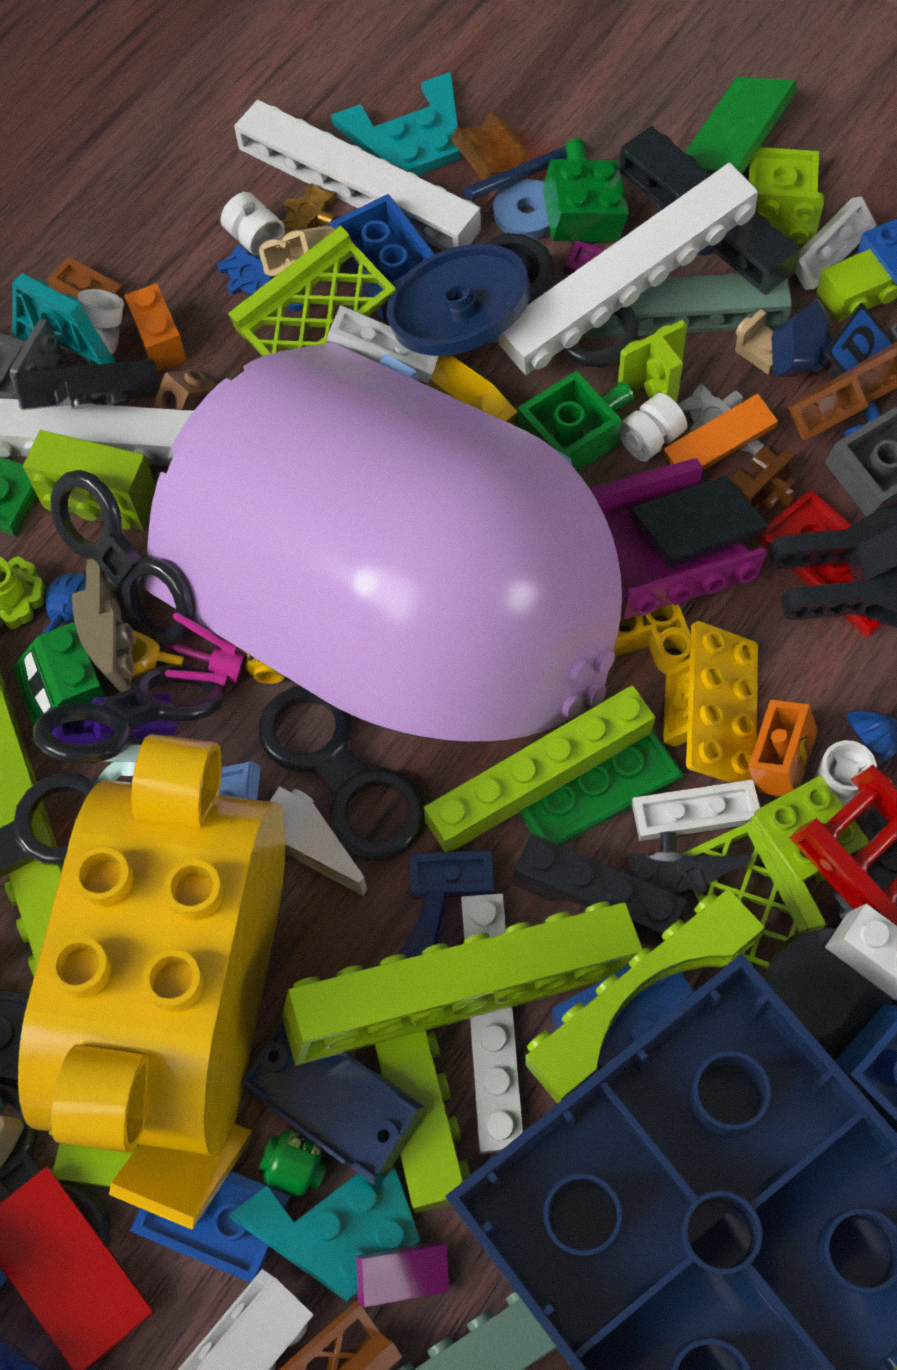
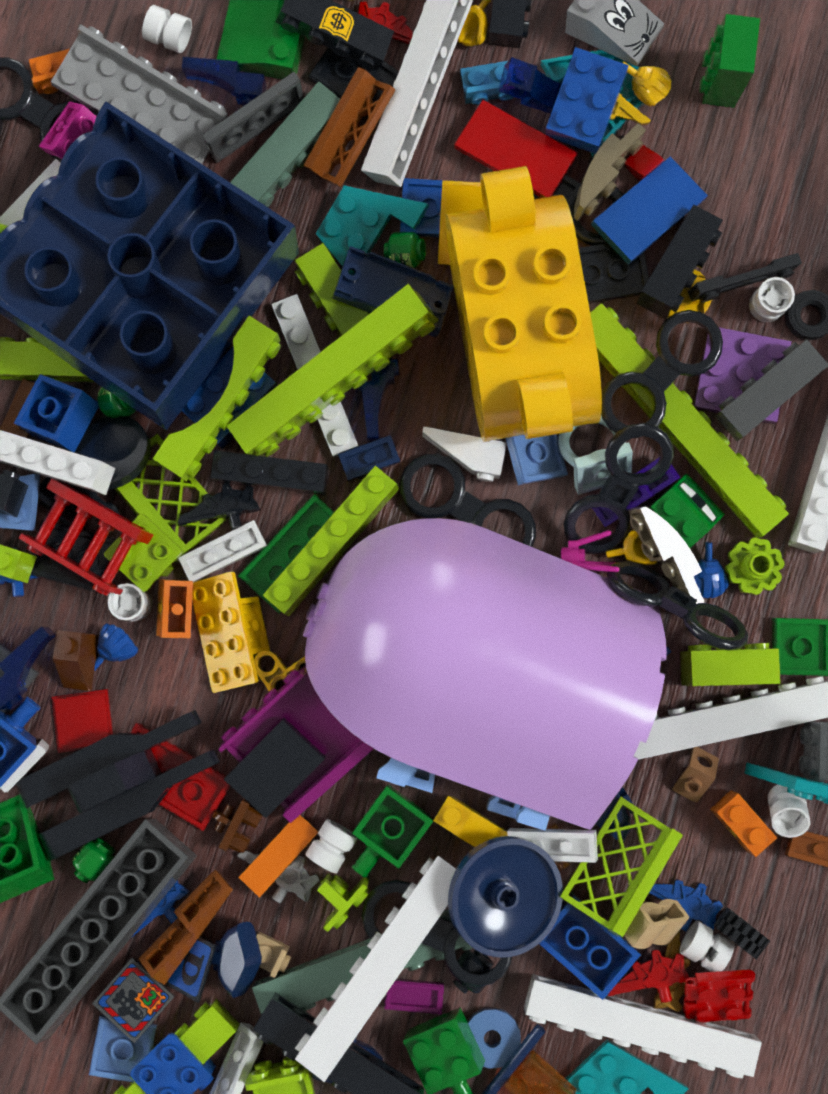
camera: 160 degrees right, 20 degrees up
(86, 385) = (765, 742): black bracket -> none
(208, 223) = (741, 933): none -> black tyre
(260, 178) = (719, 996): none -> red plate
(314, 211) = (657, 973): none -> red piece
(402, 1274) = (318, 209): magenta tile -> none

